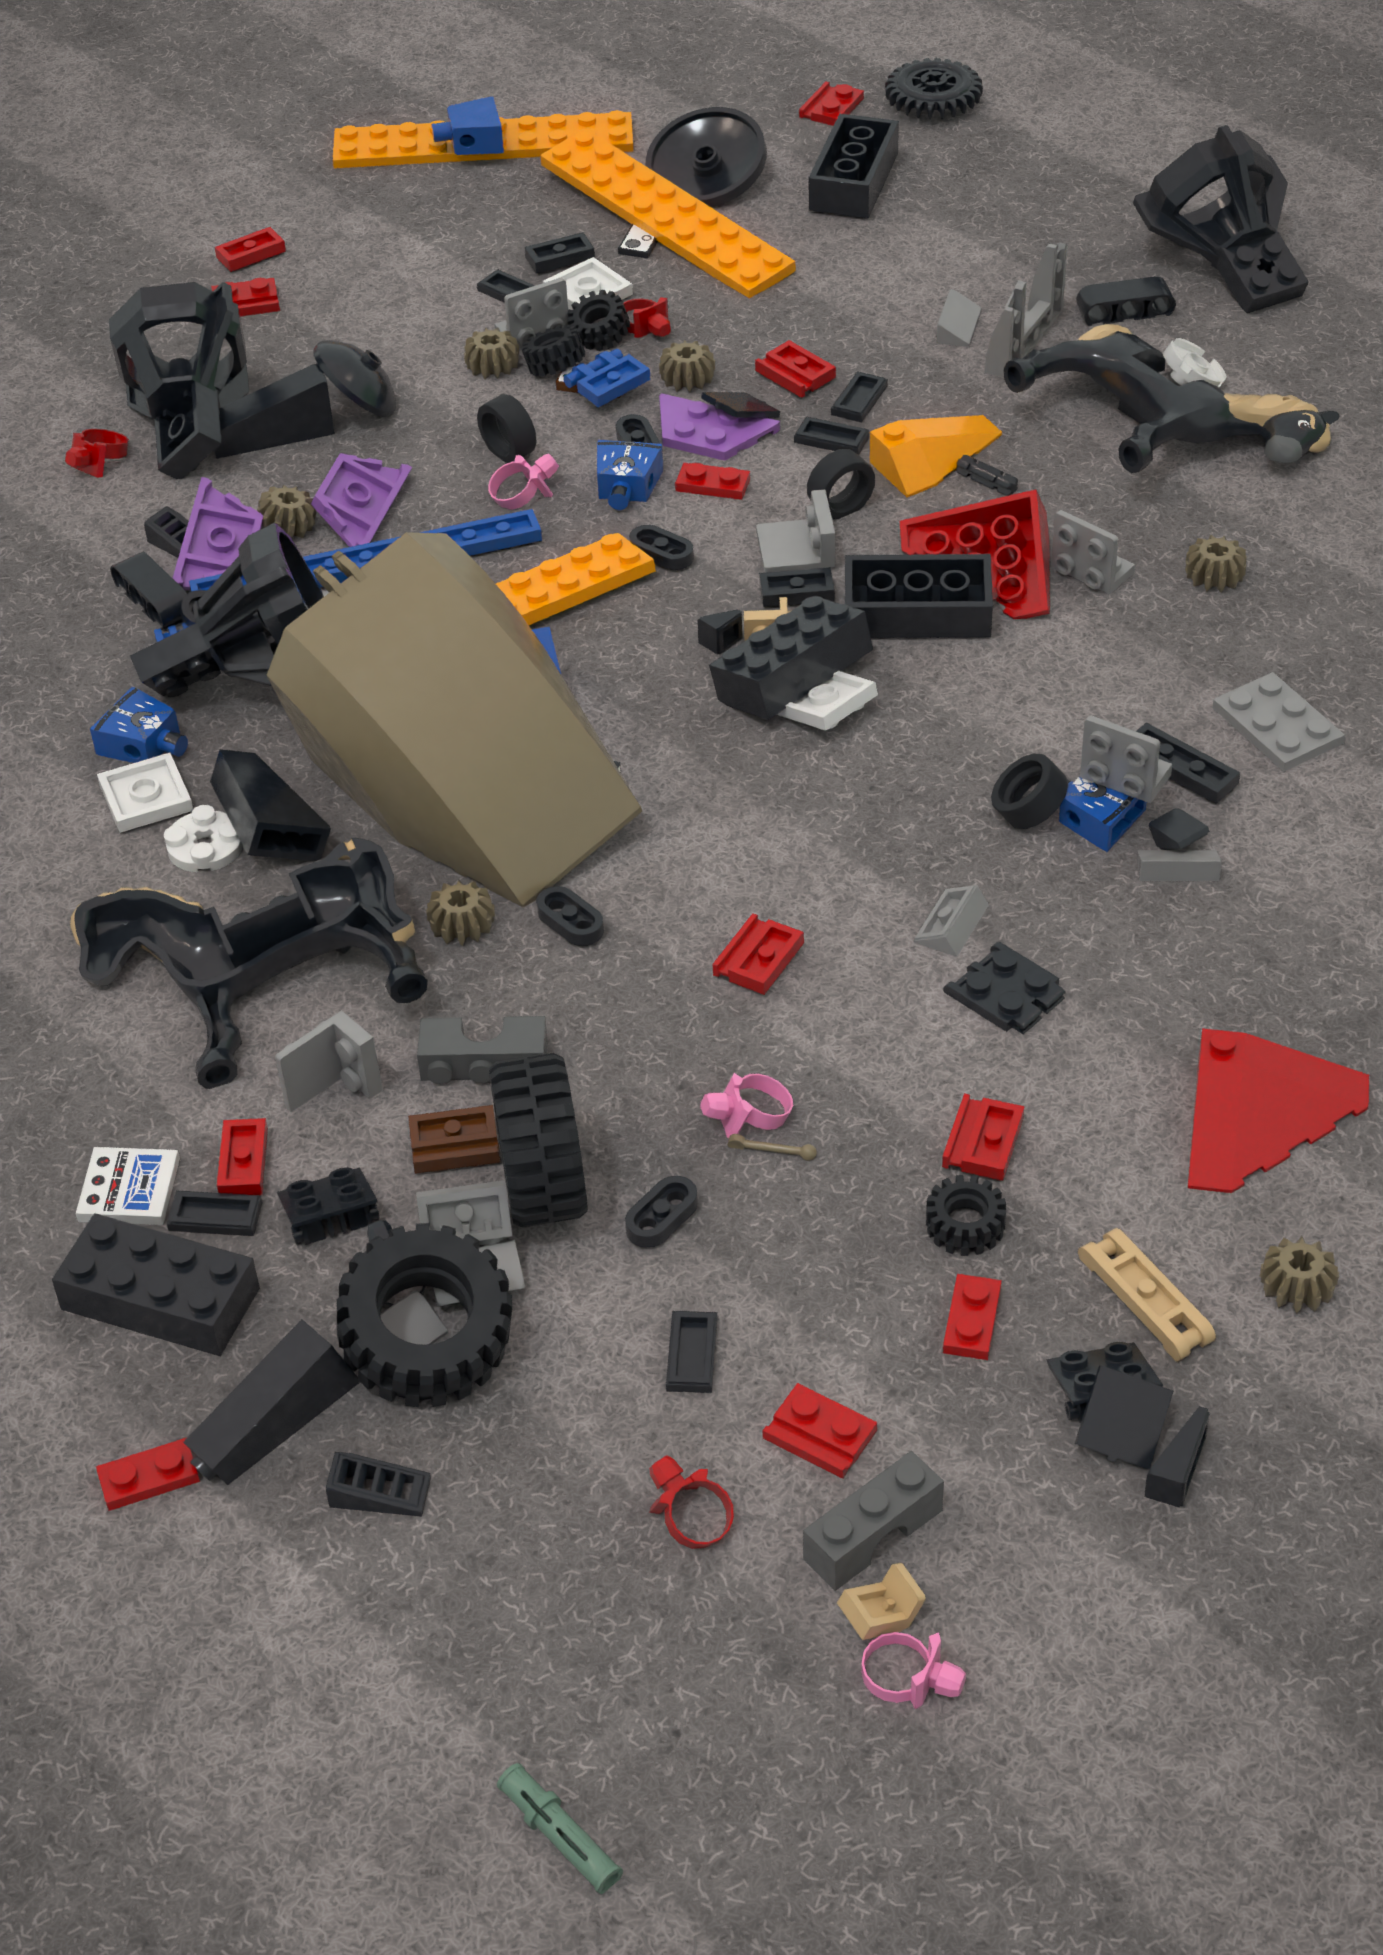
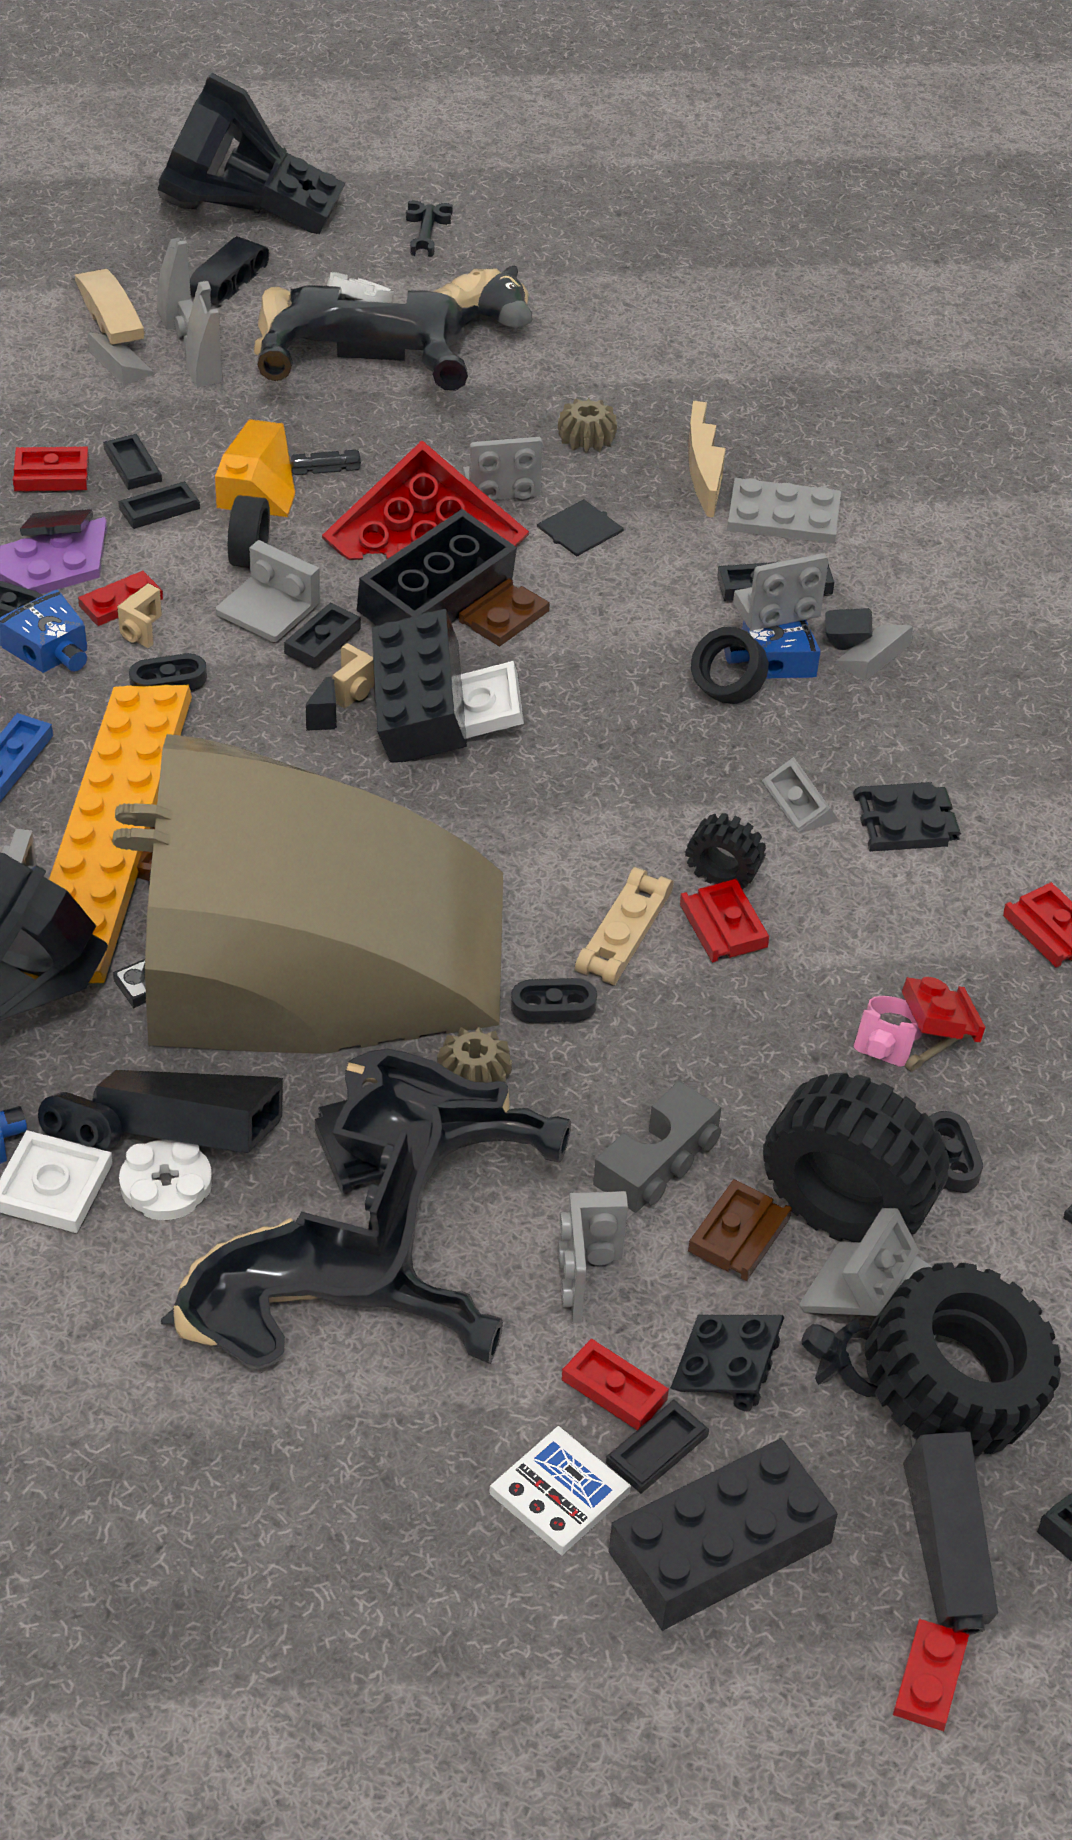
camera: 55 degrees left, 0 degrees up
(200, 769) = (72, 1117): none -> black plate
(692, 908) = (624, 926): none -> tan plate
(700, 495) = (138, 614): none -> tan bracket
(796, 1119) = (942, 1010): none -> red plate
(815, 906) = (731, 837): none -> black tyre
(948, 654) = (504, 612): none -> reddish brown plate
(998, 279) = (110, 306): none -> tan slope
(1101, 634) = (580, 527): none -> black piece
(1262, 645) = (705, 459): none -> tan slope
(1346, 343) = (427, 215): none -> black bar

